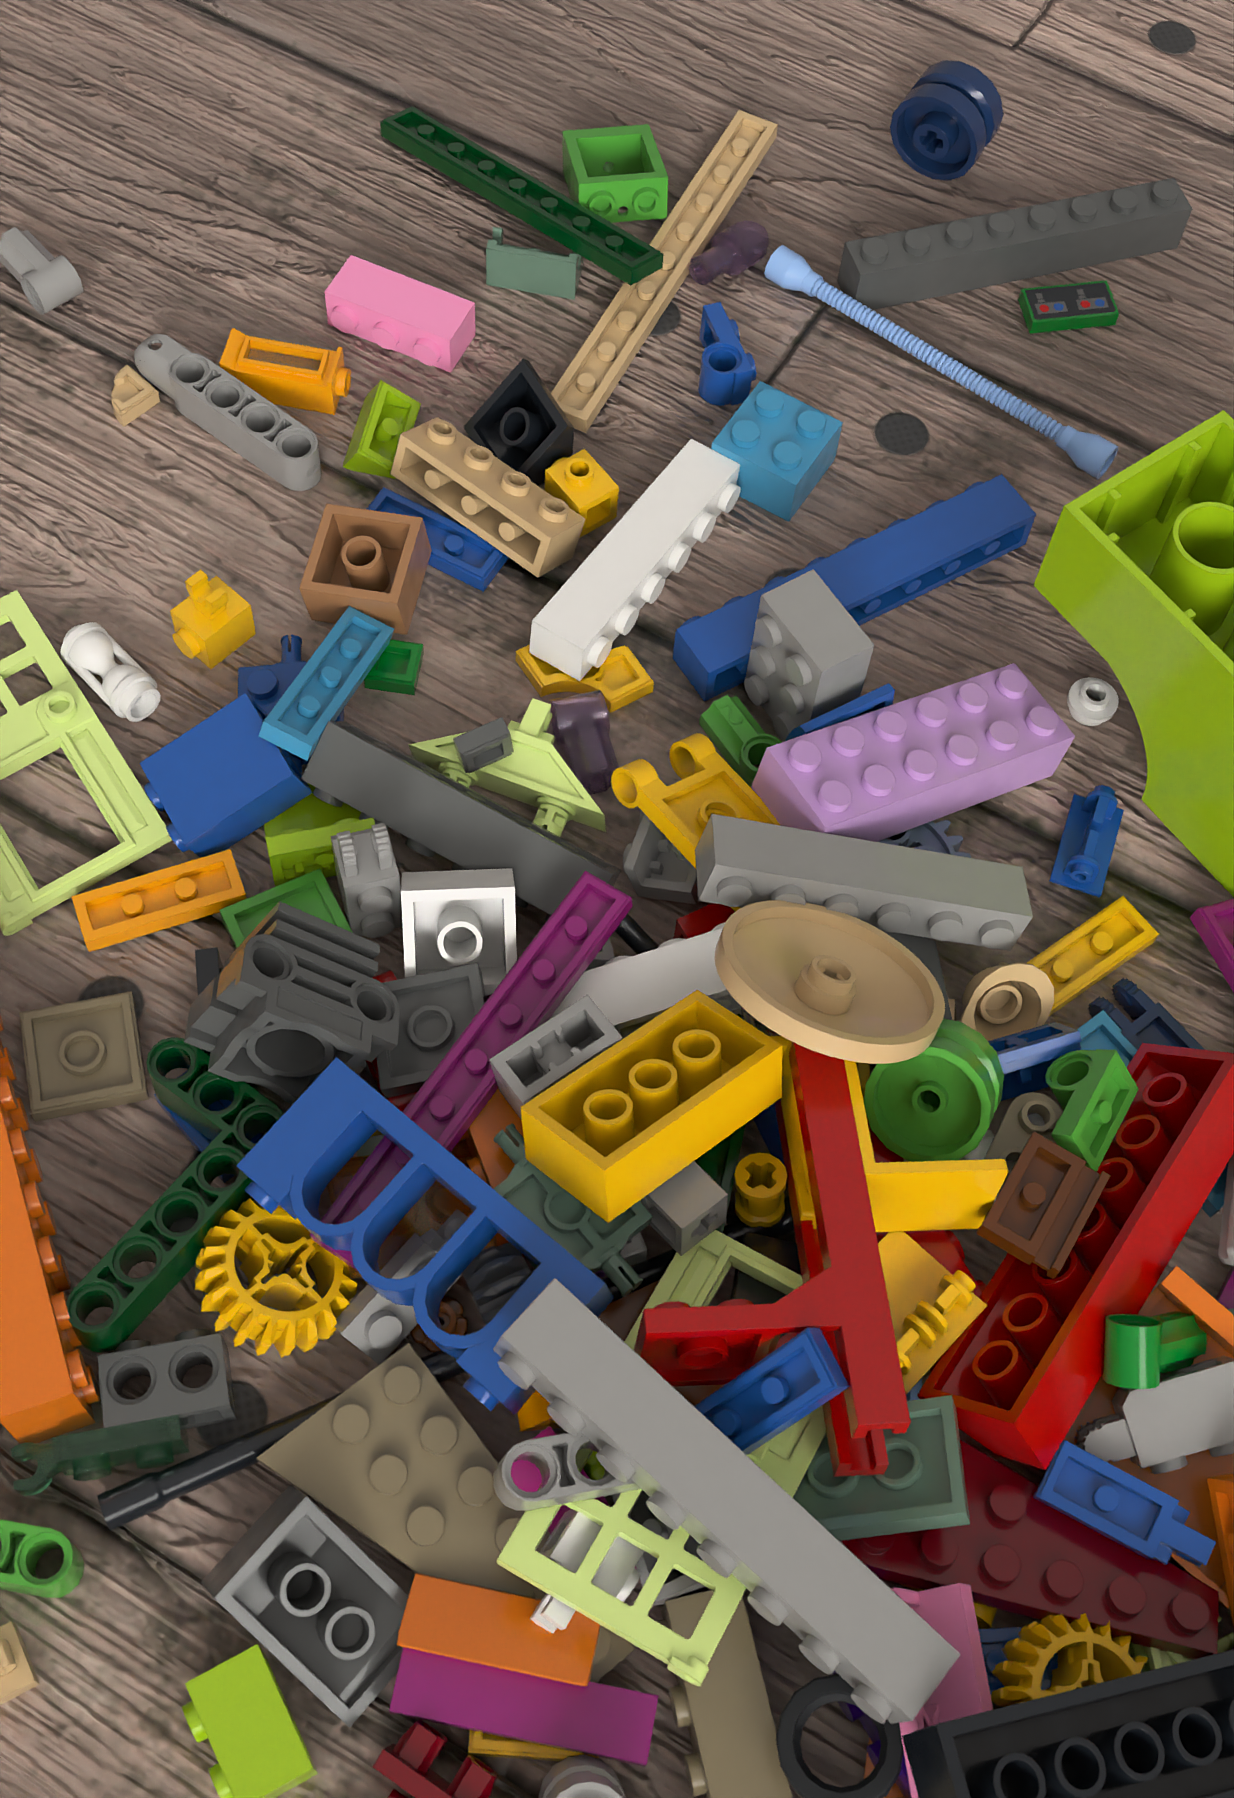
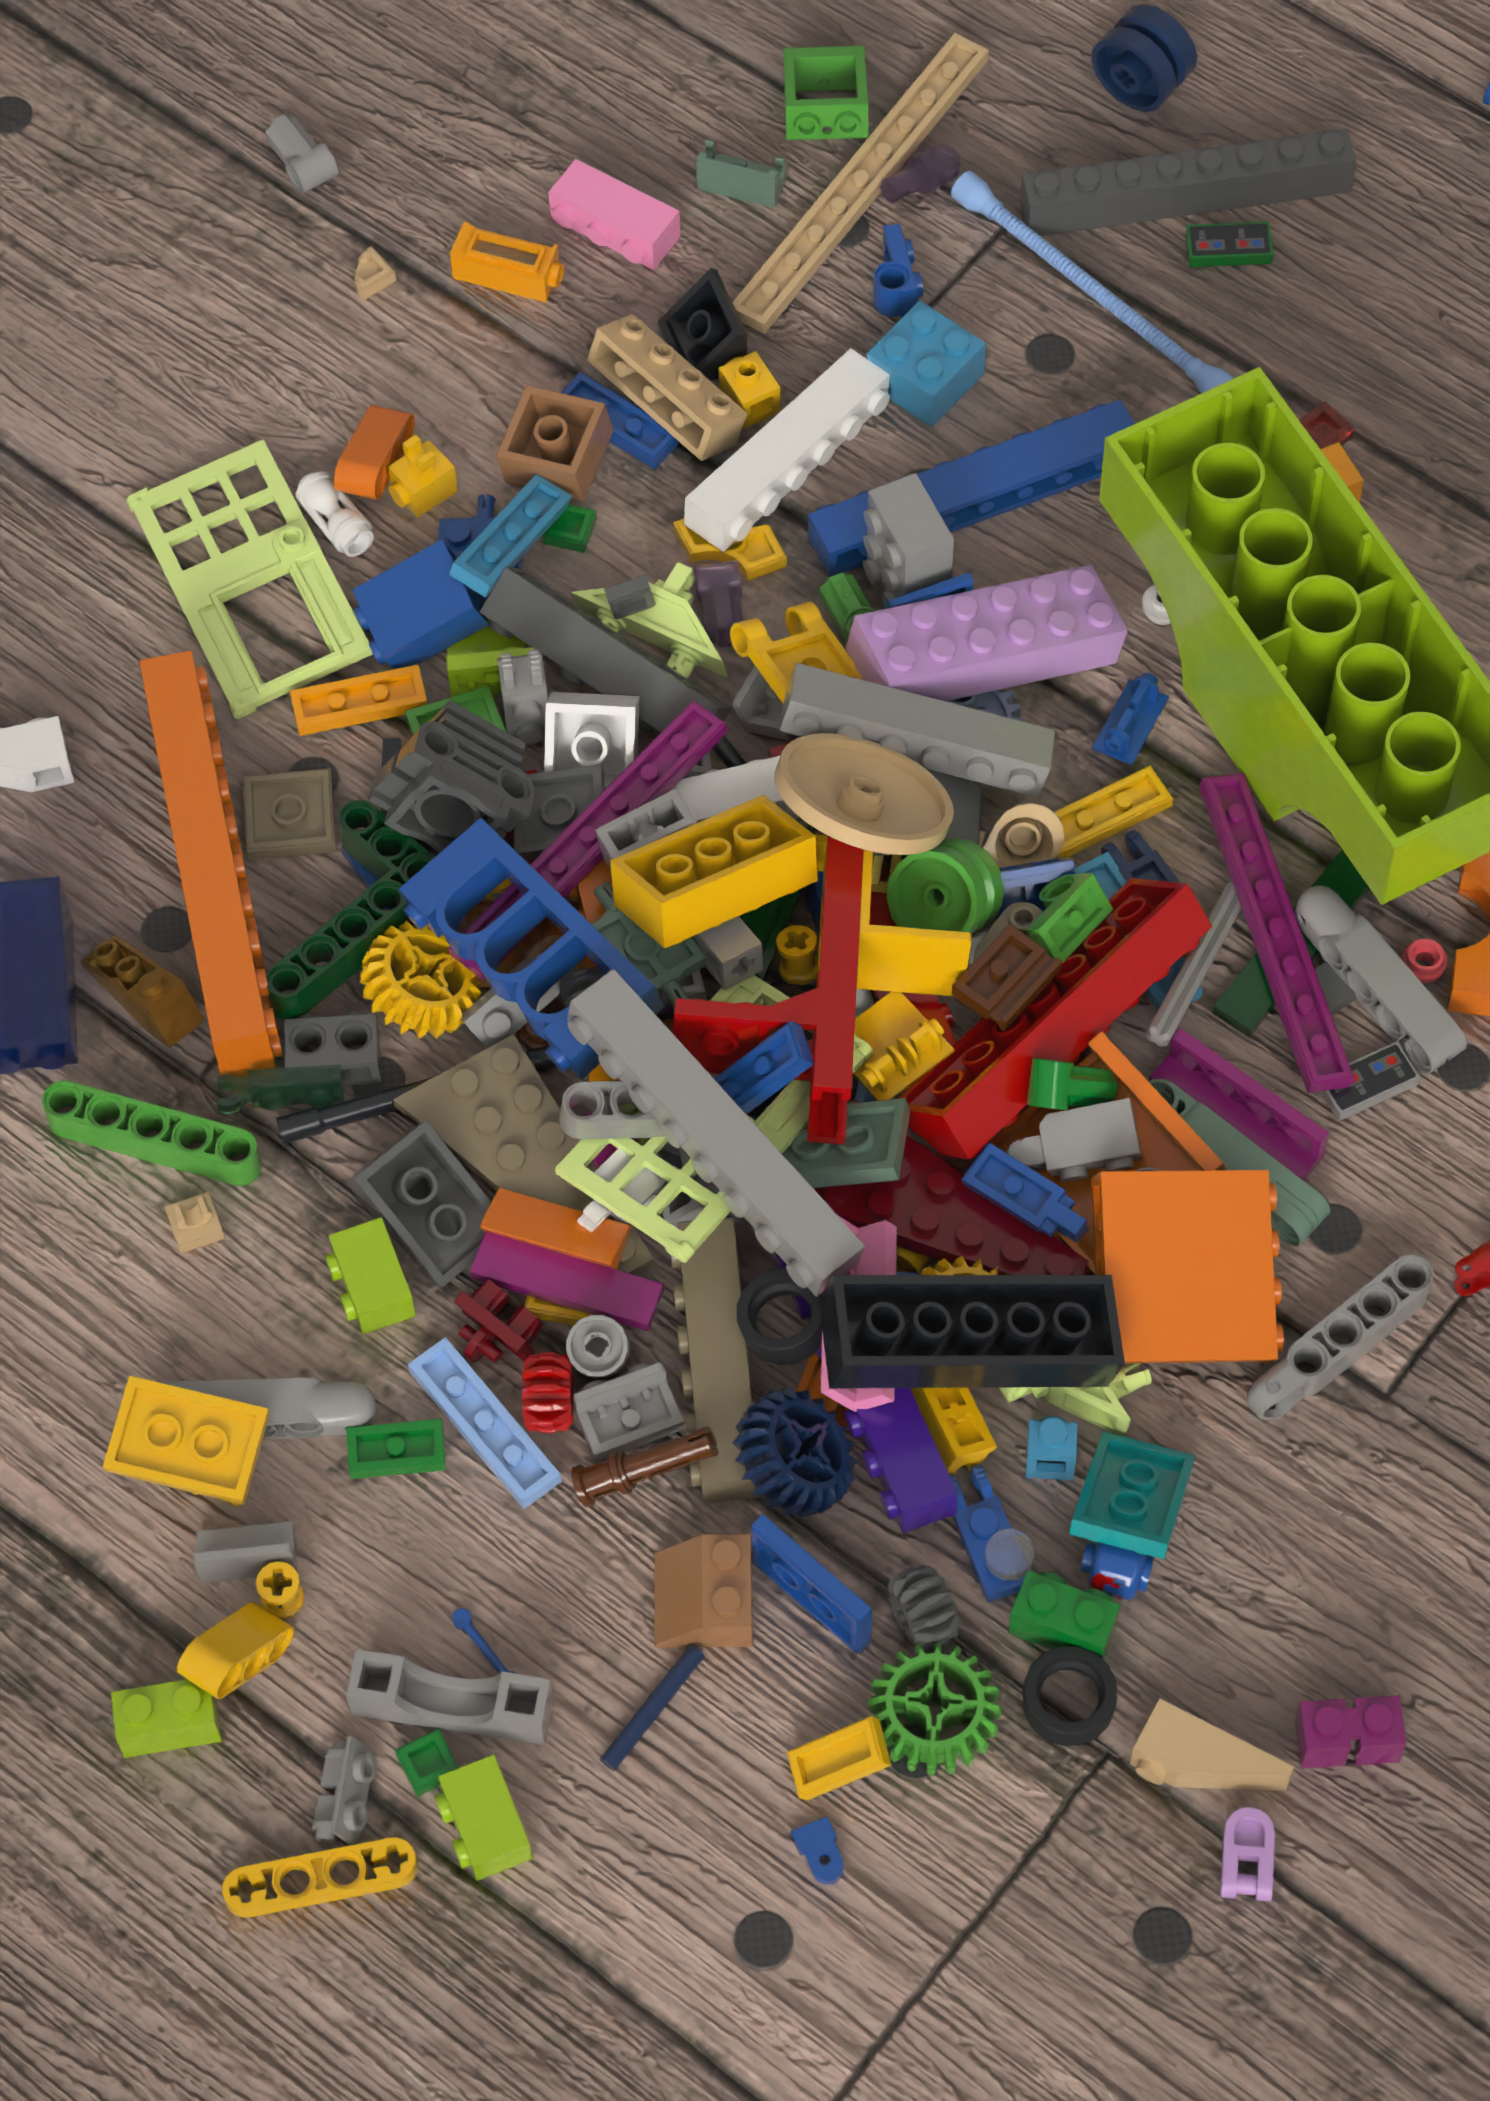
camera: 15 degrees right, 0 degrees up
(149, 590) = (373, 448): none -> orange beam
(232, 412) = (457, 296): light grey piece -> none
(378, 430) = (588, 309): lime slope -> none
(523, 195) = (736, 108): dark green tile -> none

